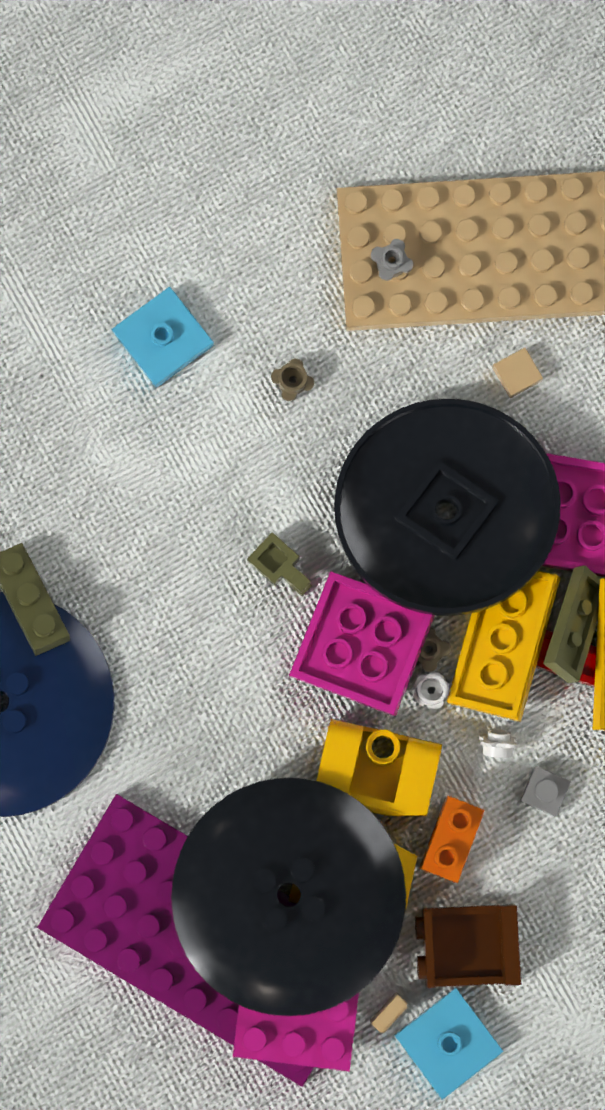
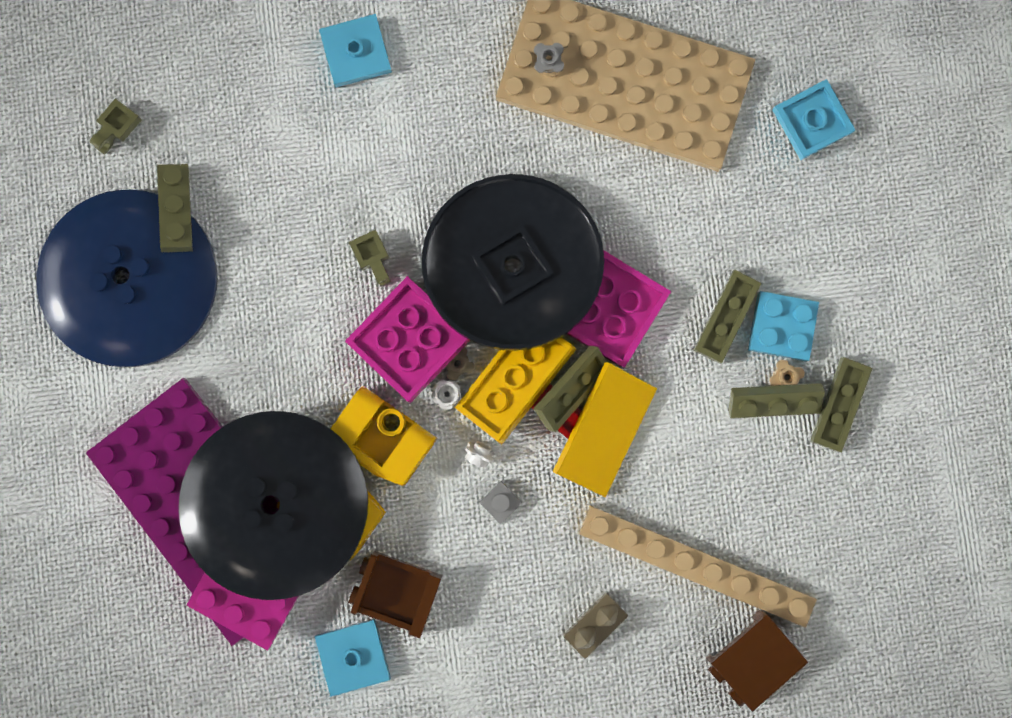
camera: 15 degrees right, 5 degrees up
(296, 369) = (443, 113): dark tan plate -> none
(389, 1013) = (316, 618): tan tile -> none
(451, 839) = (414, 510): orange brick -> none
(517, 372) = (610, 182): tan tile -> none

